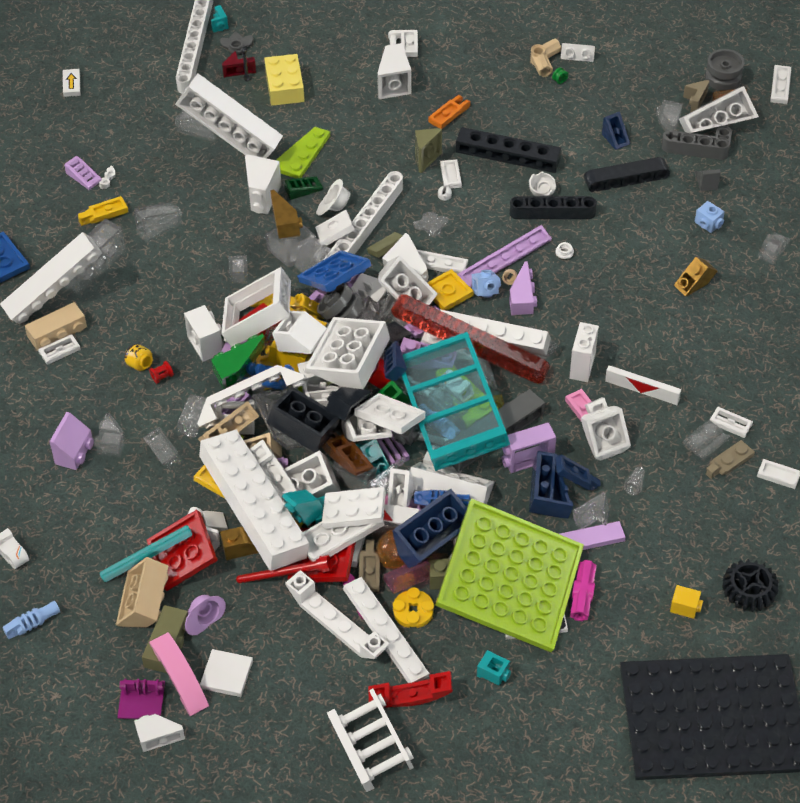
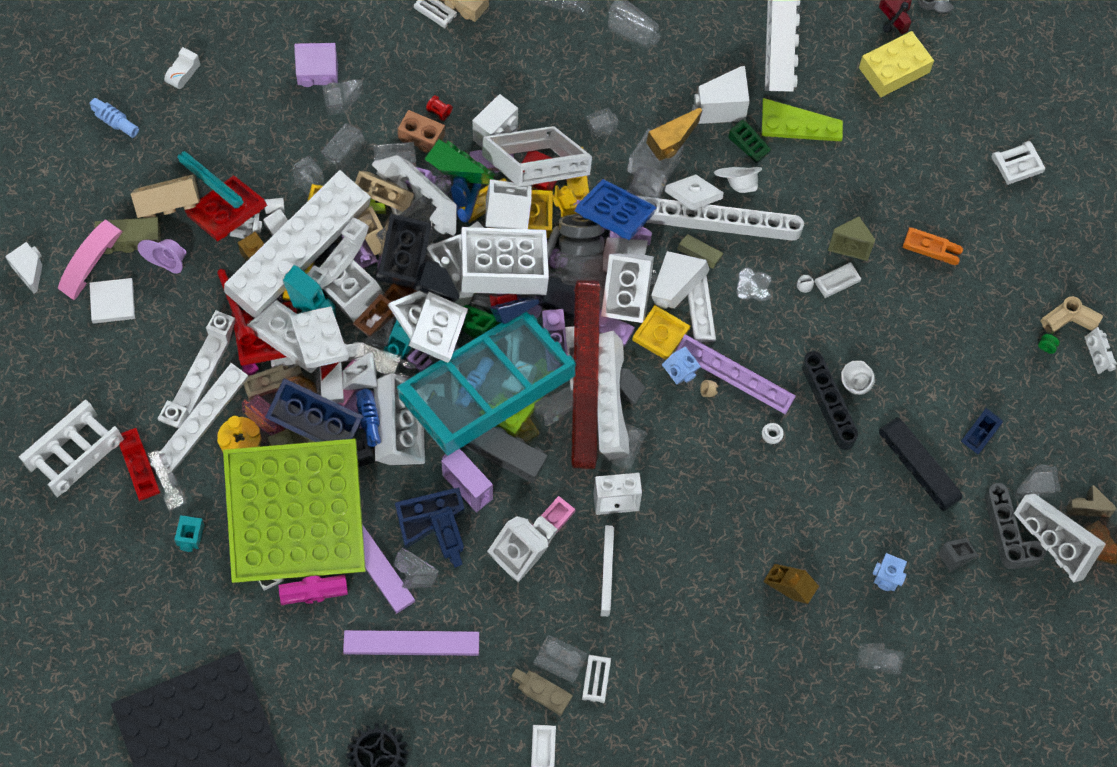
camera: 65 degrees right, 15 degrees up
(138, 357) = (448, 80): yellow head -> none
(140, 698) = (59, 240): magenta hinge -> none
(176, 390) = (423, 128): none -> nougat brick
(183, 476) = (307, 173): none -> clear hinge
(394, 73) = (956, 165): white slope -> none
(420, 667) = (174, 497): none -> clear plate
(508, 150) = (901, 375): black brick -> none
(522, 291) = (685, 407): lavender slope -> none
(634, 483) = (473, 600): clear cone -> none
(656, 537) = (411, 643): none -> lavender tile
(686, 602) = (332, 694): yellow brick -> none

